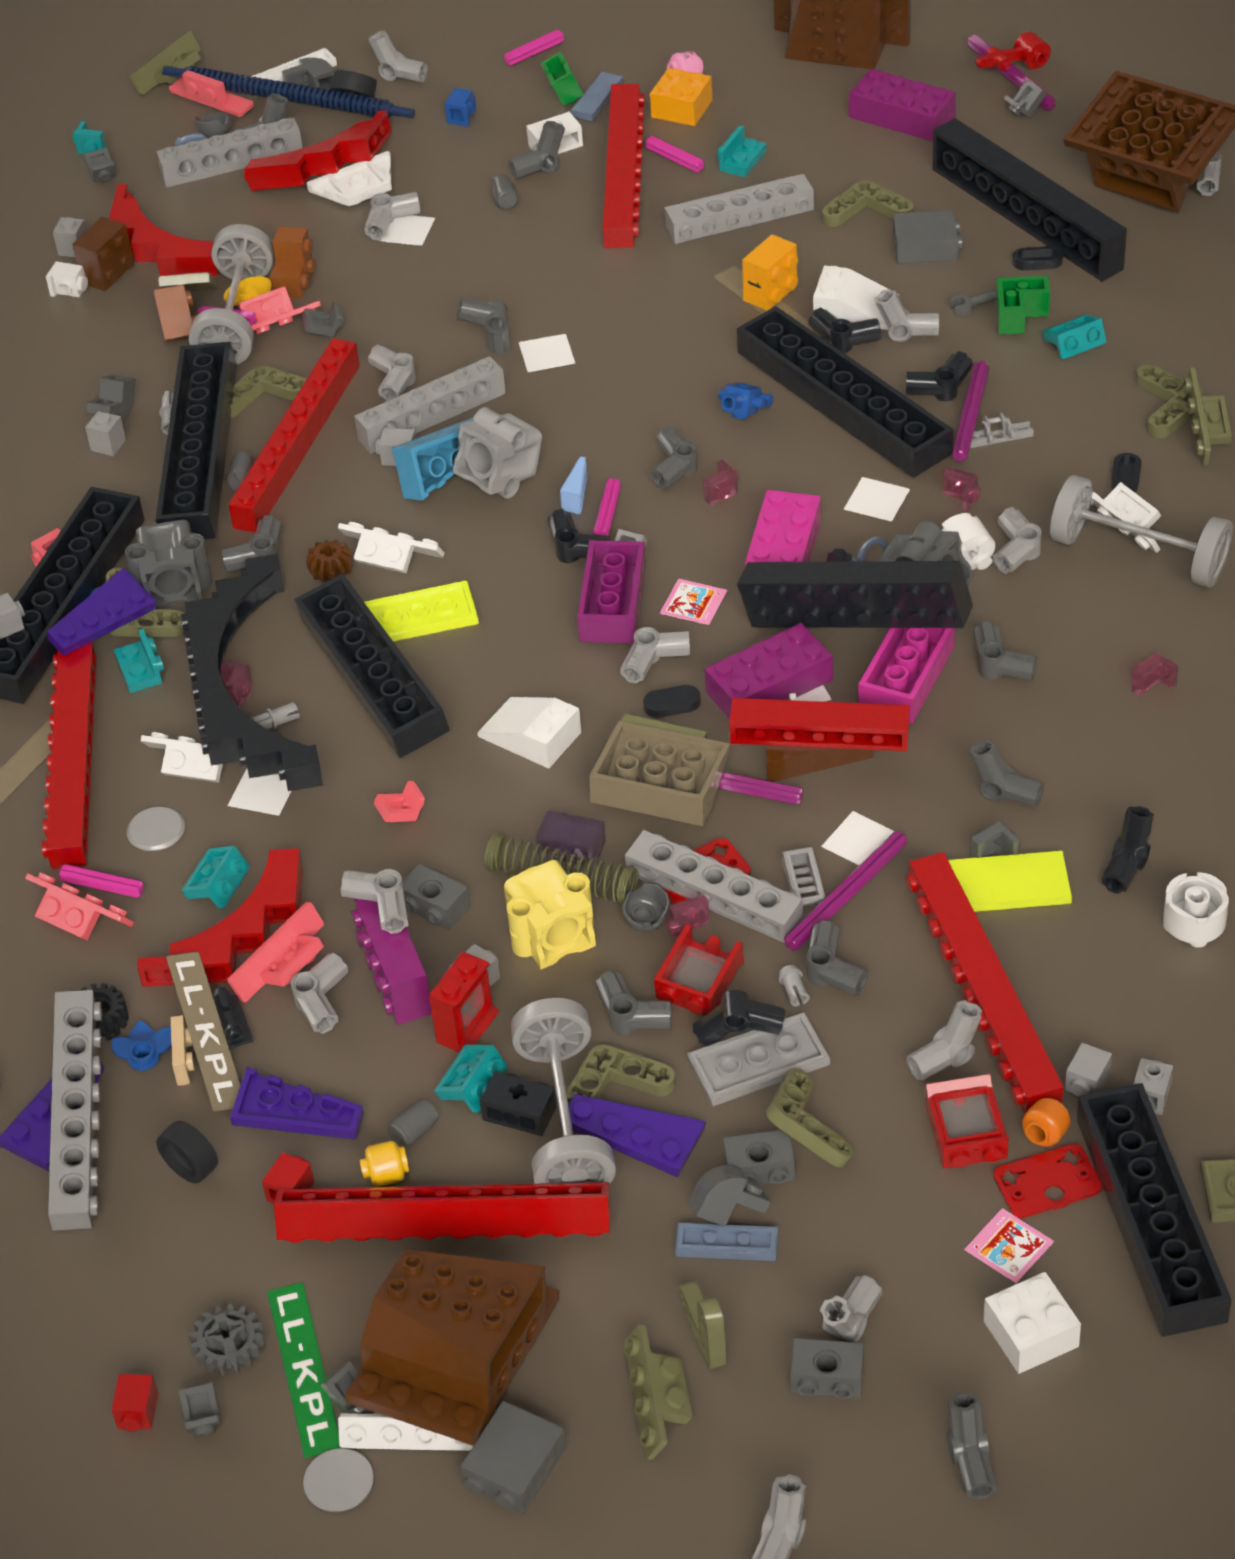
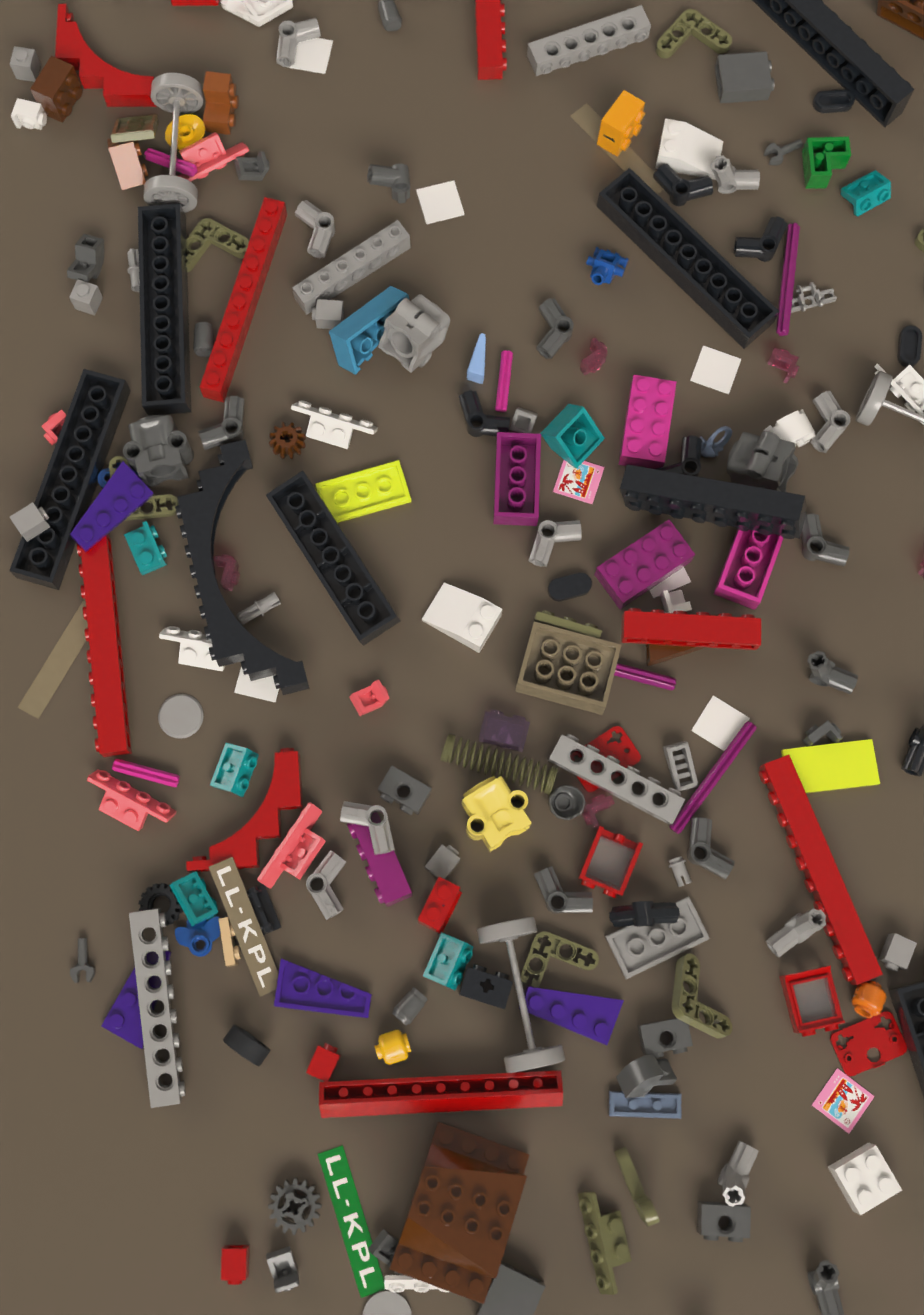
camera: 10 degrees left, 30 degrees up
(143, 998) = (194, 898): none -> teal bracket
(688, 553) = (573, 435): none -> teal slope

